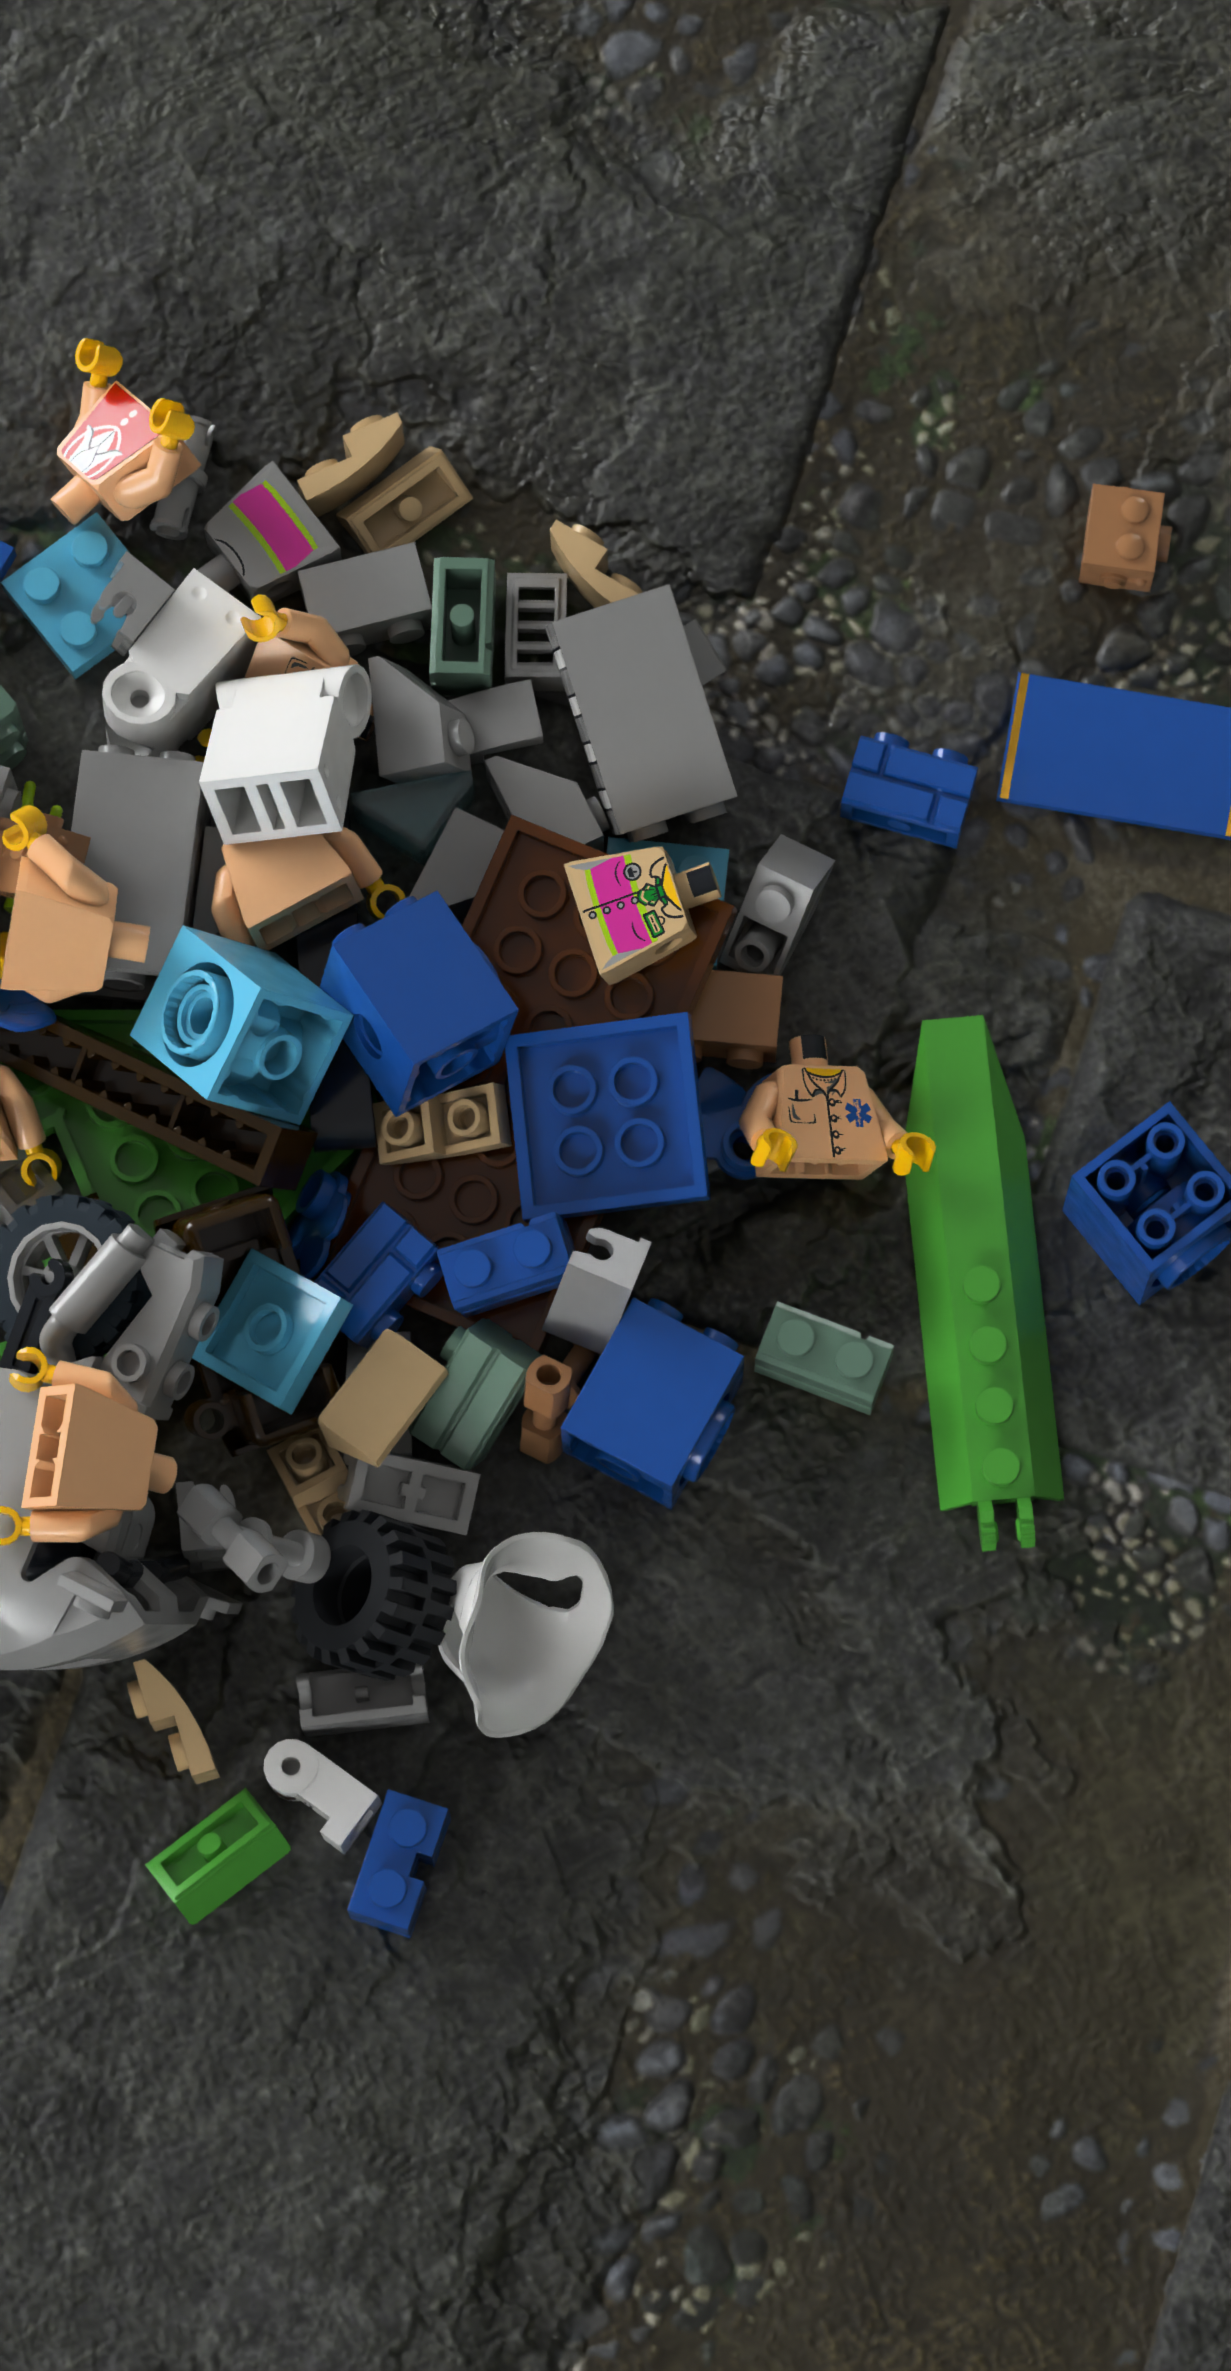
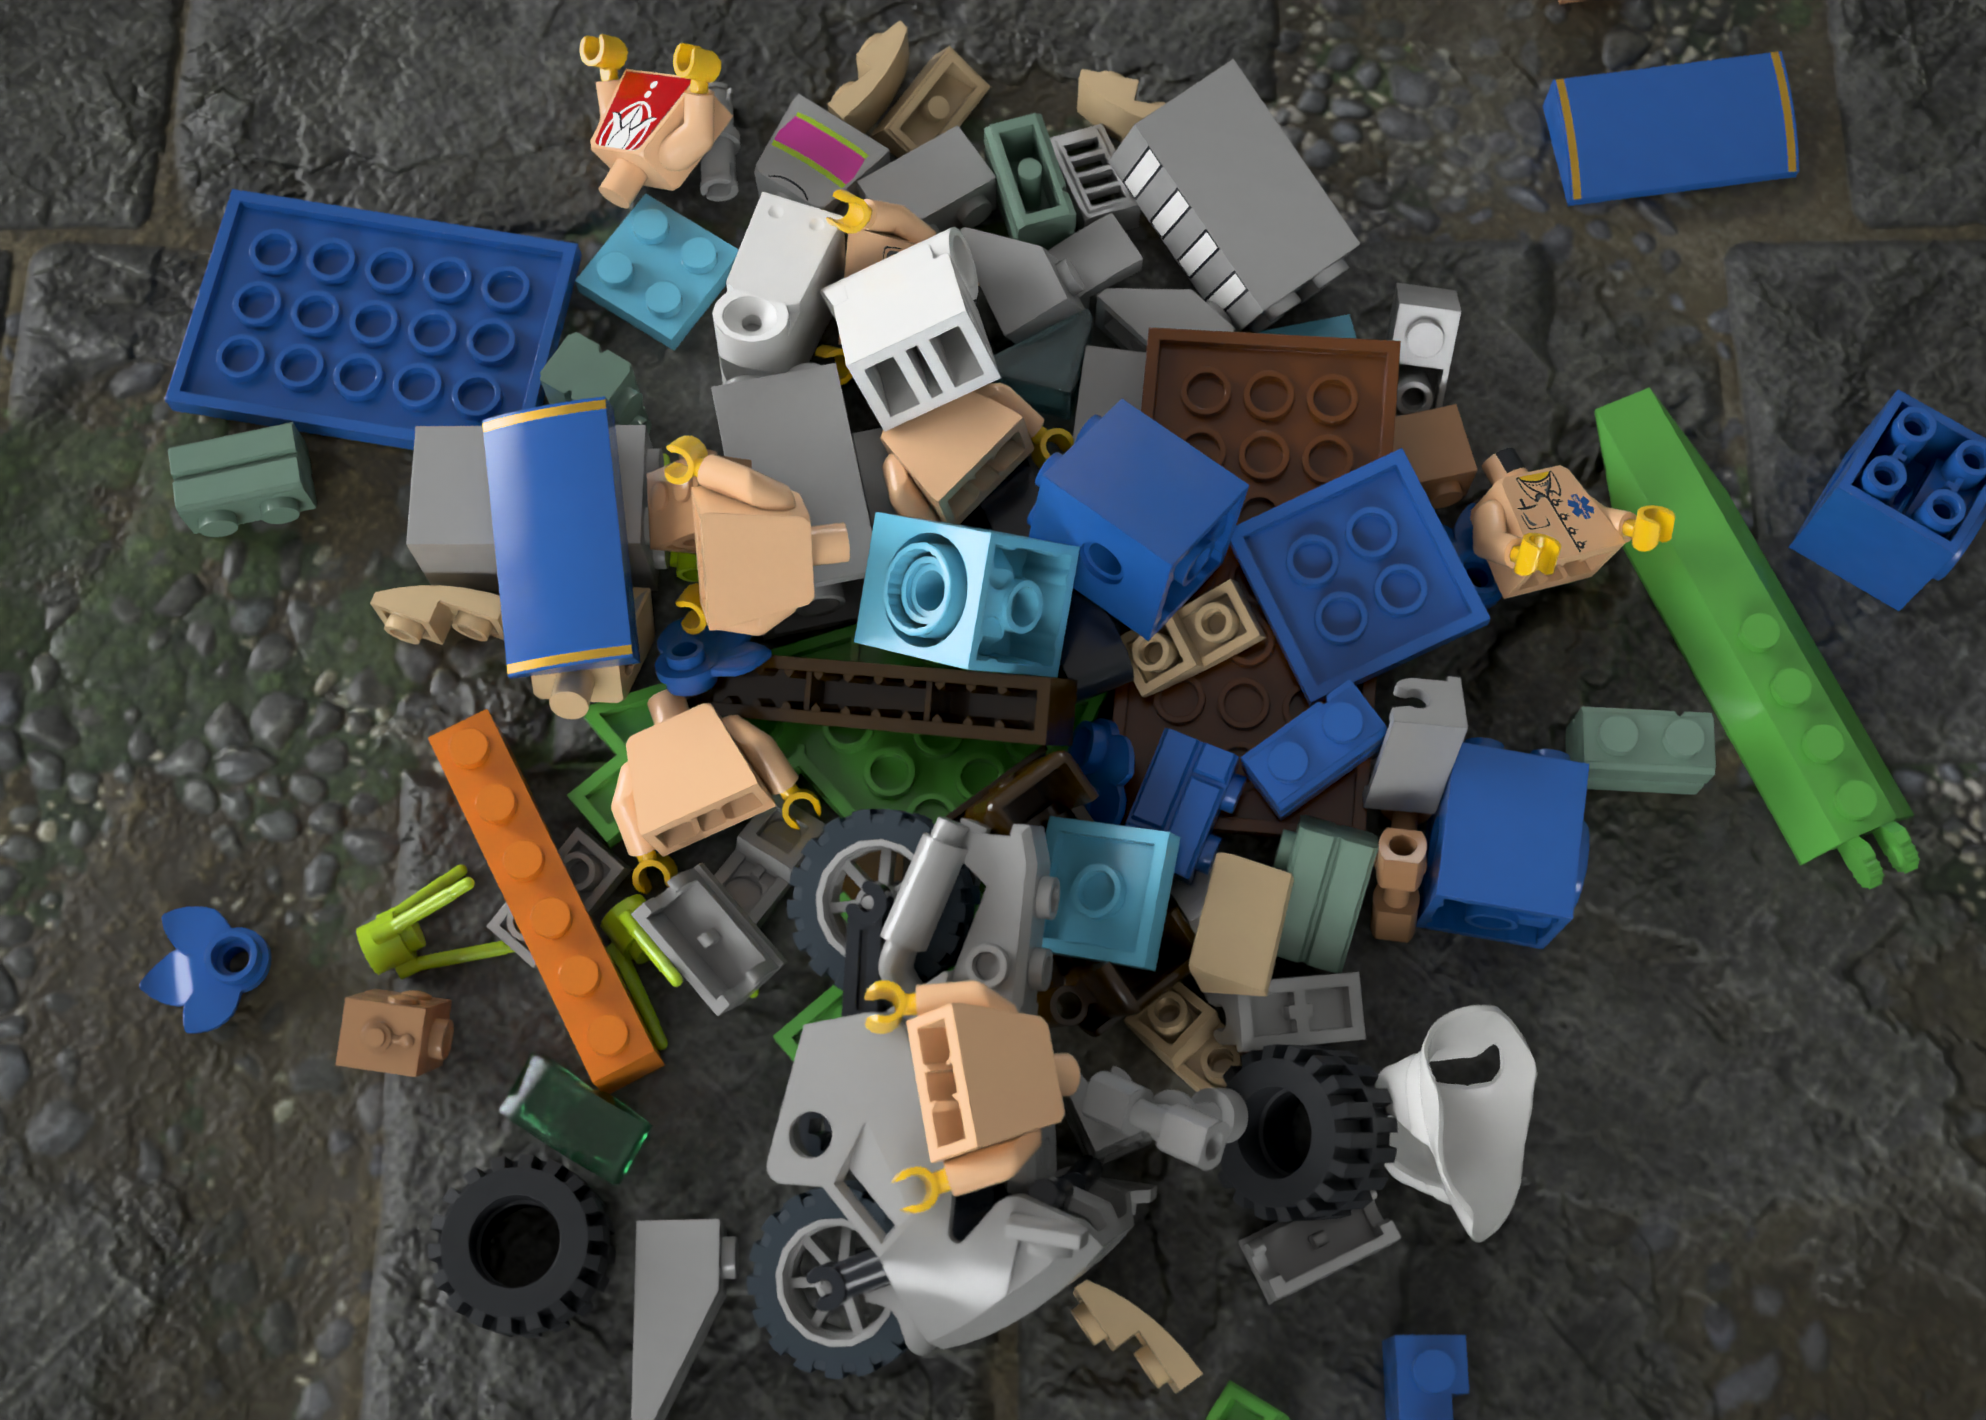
camera: 20 degrees left, 5 degrees down
(132, 592) = (711, 240): light grey hinge -> none
(306, 1775) = (1296, 1346): white leg -> none
(637, 907) = (1312, 365): torso -> none
(909, 789) = (1494, 213): blue brick -> none

